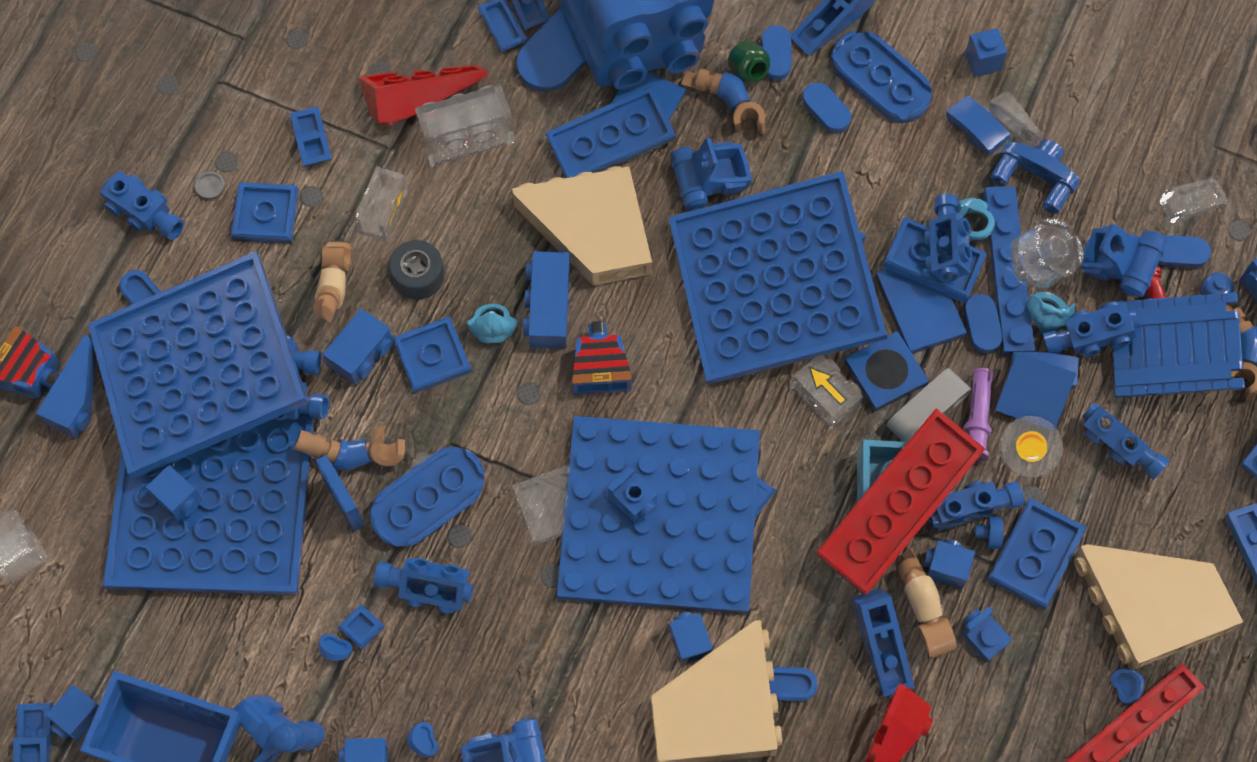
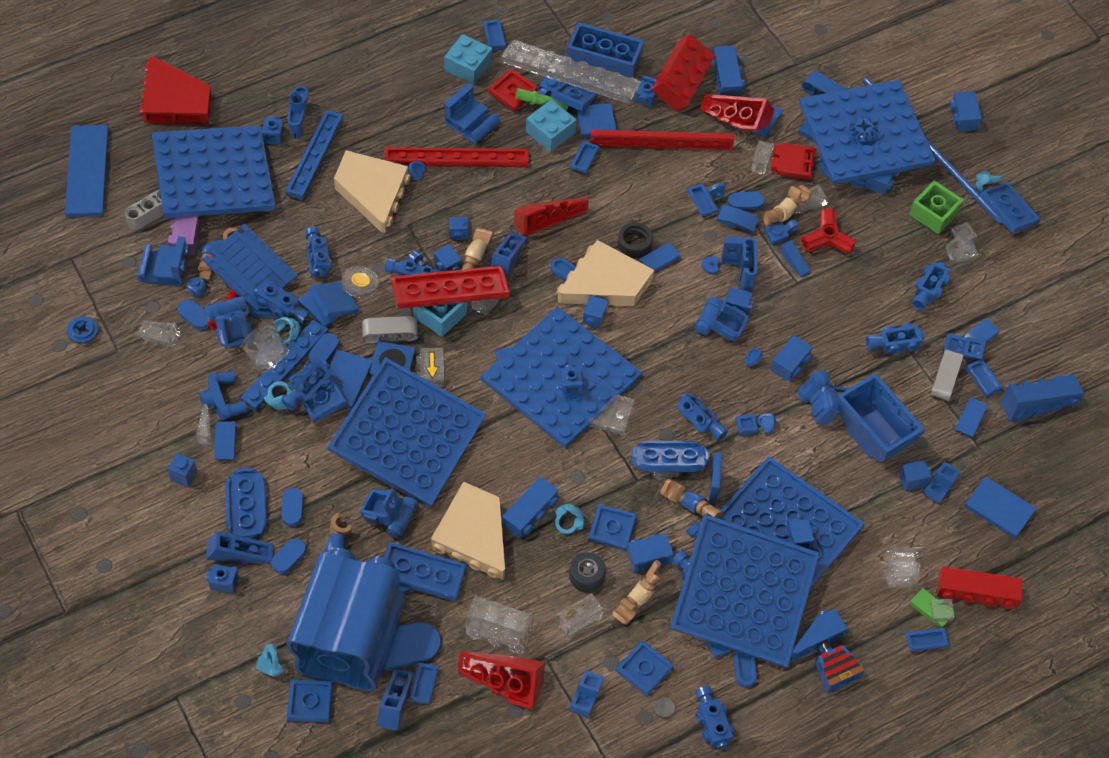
camera: 145 degrees left, 10 degrees down
(600, 363) = (531, 459): torso -> none
(749, 61) = (309, 552): dark green head -> none
(977, 423) = (376, 306): medium lavender pin -> none
(1037, 553) = (401, 242): blue tile -> none

